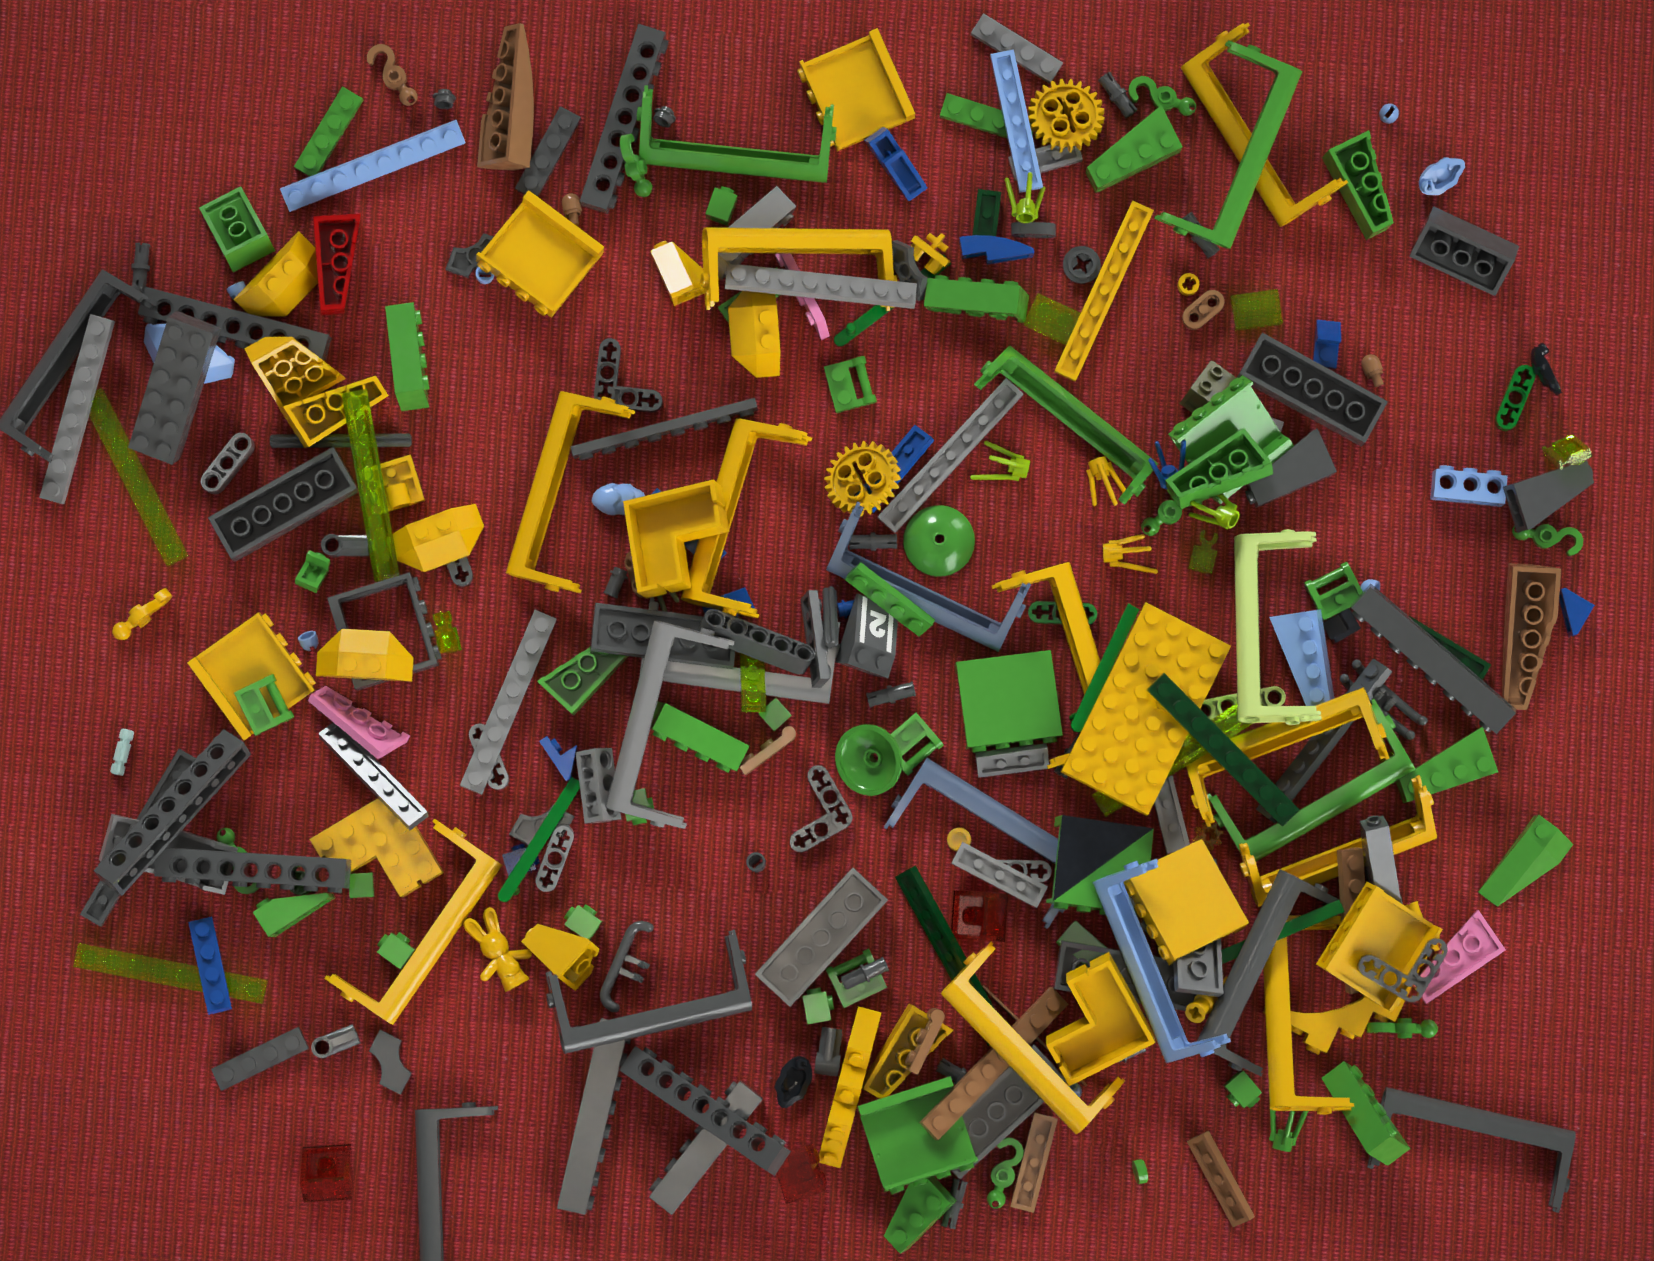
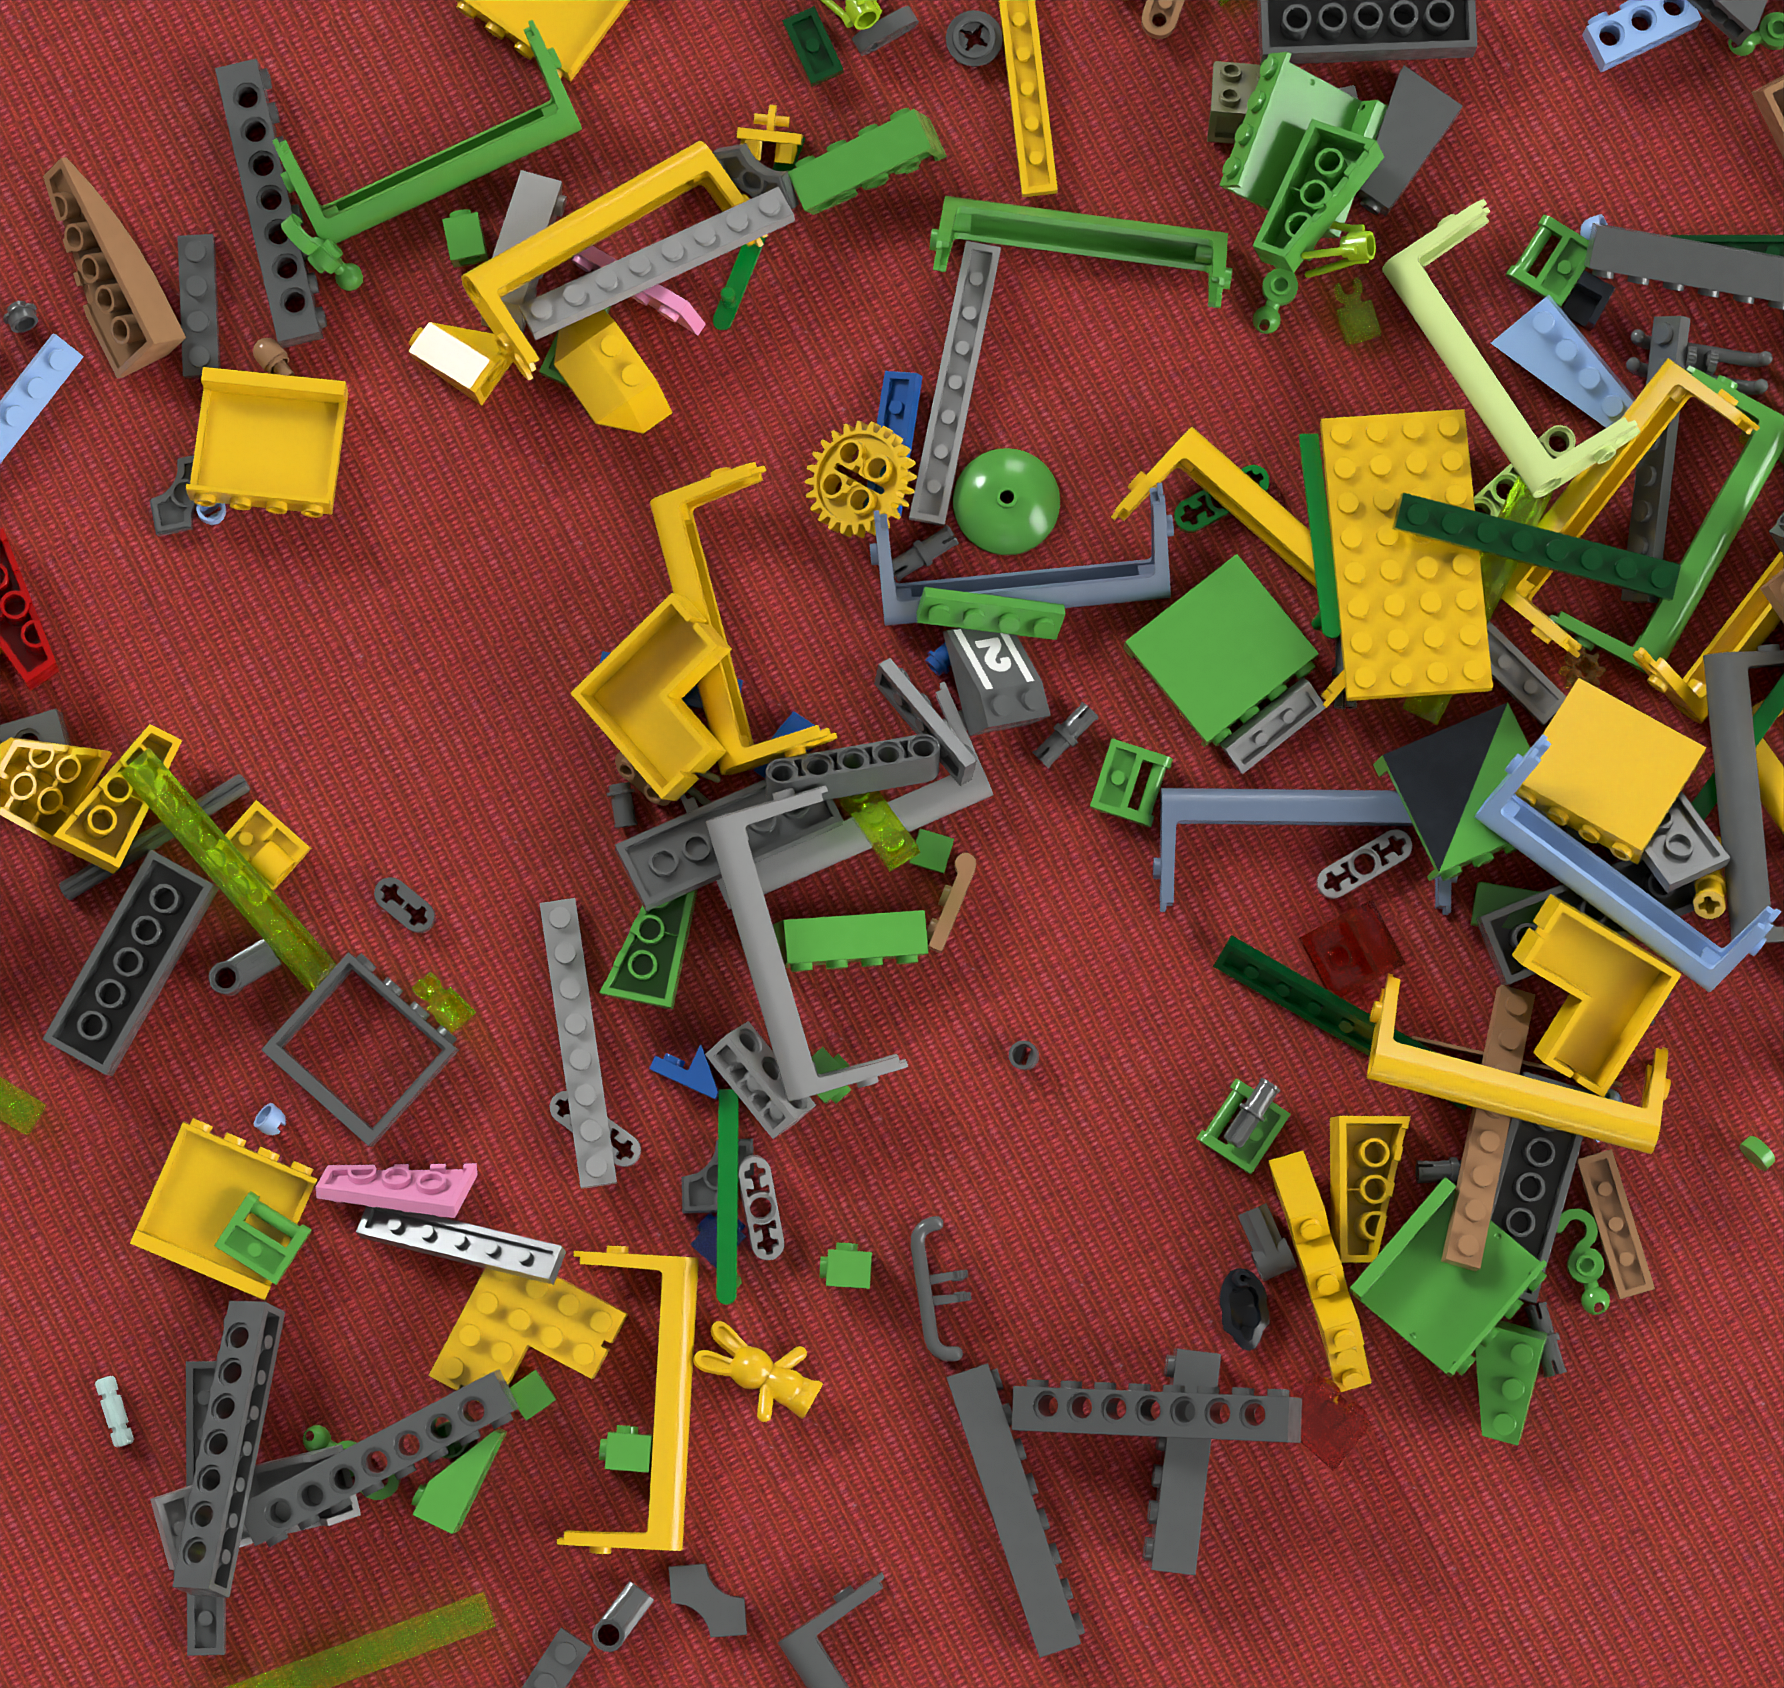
camera: 25 degrees left, 0 degrees up
(141, 615) = (31, 1219): yellow piece -> none
(210, 965) = (398, 1618): blue plate -> none
(227, 475) = (17, 938): light grey beam -> none
(313, 571) = (222, 1027): bright green bracket -> none
(365, 656) = (356, 1096): yellow wedge -> none
(407, 356) = (175, 676): bright green wedge -> none
(439, 538) = (359, 886): yellow wedge -> none
(547, 483) = (457, 732): yellow piece -> none
(562, 953) = (846, 1323): yellow slope -> none
(611, 496) = (551, 697): light blue arm -> none
(618, 391) = (475, 559): dark grey beam -> none
(655, 432) = (556, 582): dark grey plate -> none
(655, 1020) = (1020, 1337): dark grey piece -> none
(664, 116) = (320, 169): dark grey plate -> none
(817, 1006) = (1215, 1192): bright green brick -> none
(821, 937) = (1167, 1100): dark grey brick -> none
(829, 818) = (1082, 944): dark grey beam -> none
(830, 618) = (928, 682): dark grey axle -> none
(842, 387) = (761, 379): bright green plate -> none
(857, 762) = (1079, 852): bright green dish -> none
(896, 163) = (656, 51): blue slope -> none
(925, 1040) = (1384, 1150): medium nougat plate -> none
(958, 836) = (1265, 869): yellow tile -> none
(993, 248) = (849, 85): blue slope -> none
(999, 875) = (1347, 882): light grey plate -> none
(1017, 465) = (1048, 344): lime plant -> none
(1051, 319) = (978, 130): clear neon green plate -> none
(1100, 469) = (1160, 284): yellow plant -> none
(1113, 552) = (1239, 381): yellow plant -> none
(1167, 470) = (1245, 235): blue plant -> none

